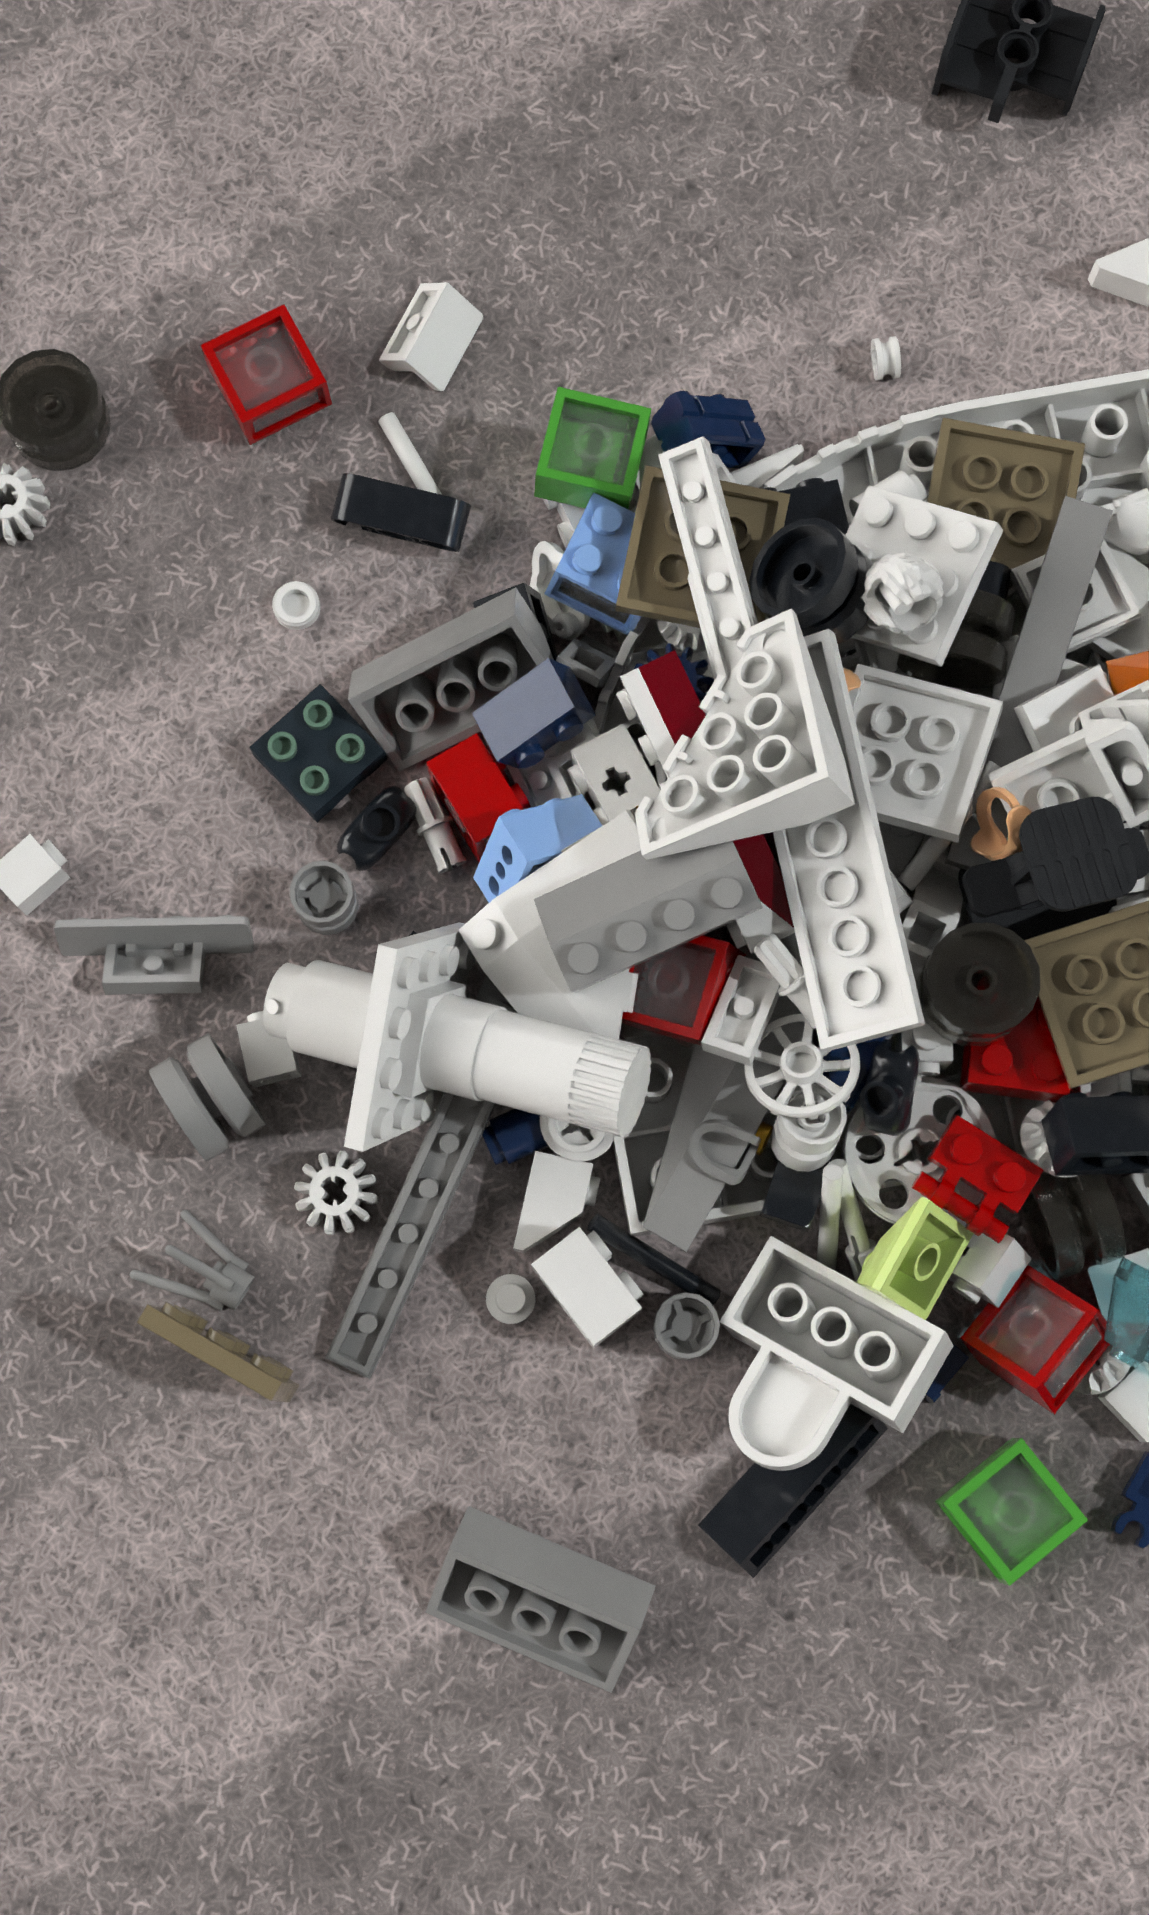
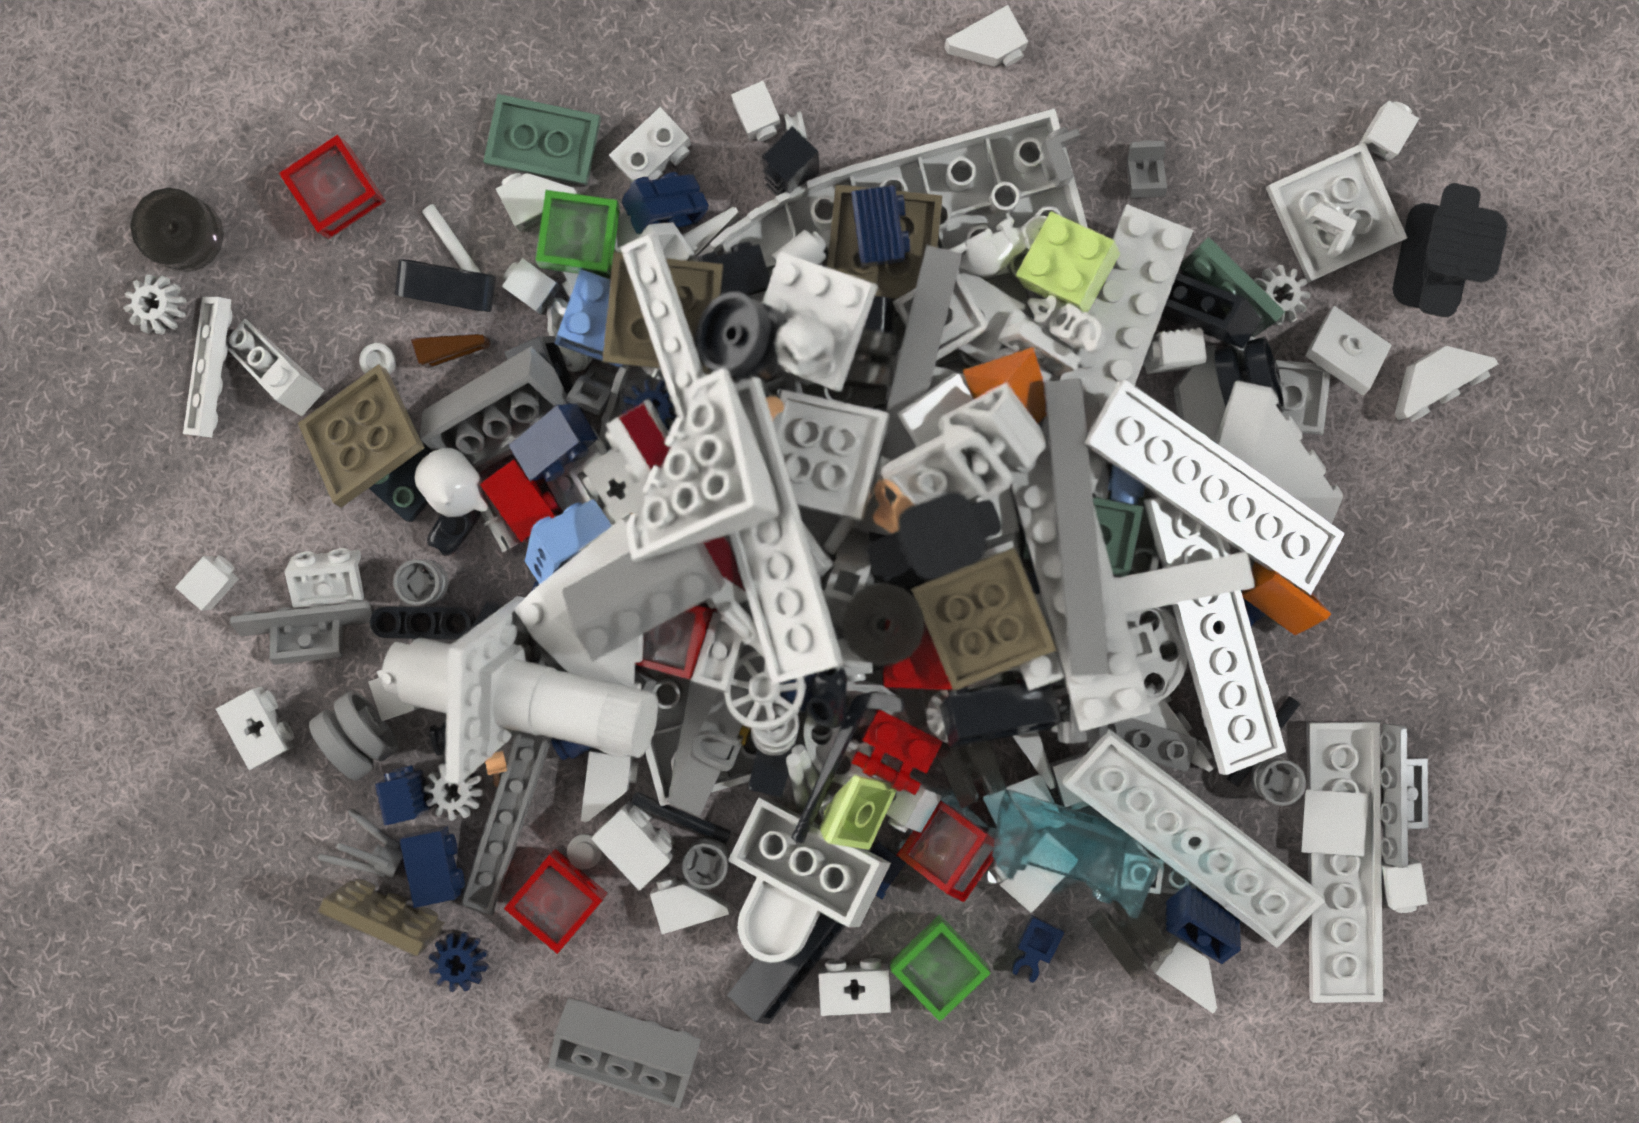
camera: 10 degrees left, 10 degrees up
(48, 1060) = (244, 713): none -> white brick
(67, 591) = (207, 366): none -> white plate
(156, 600) = (273, 368): none -> white slope
(189, 883) = (324, 578): none -> white bracket
(265, 1187) = (402, 795): none -> dark blue brick
(266, 693) = (360, 435): none -> dark tan plate
(294, 1296) = (432, 866): none -> dark blue brick
(301, 941) = (407, 622): none -> black beam
(328, 1119) = (438, 738): none -> black bush
(329, 1431) = (469, 956): none -> dark blue gear
(383, 763) = (450, 483): none -> white piece
(396, 594) = (442, 349): none -> reddish brown slope
(403, 1152) = (496, 765): none -> light nougat piece
(432, 334) = (455, 140): white panel -> none
(465, 1361) = (556, 901): none -> piece
(514, 524) = (530, 285): none -> white brick
(519, 413) = (525, 196): none -> white slope
(547, 342) = (542, 139): none -> sand green plate
(648, 1385) = (684, 905): none -> white slope
(694, 362) = (651, 148): none -> white brick
(837, 330) = (756, 112): none -> white brick
(883, 385) = (790, 163): none -> black brick
(910, 1547) = (872, 994): none -> white brick
(922, 1118) = (853, 716): none -> black piece
(1000, 468) = (879, 226): none -> dark blue brick

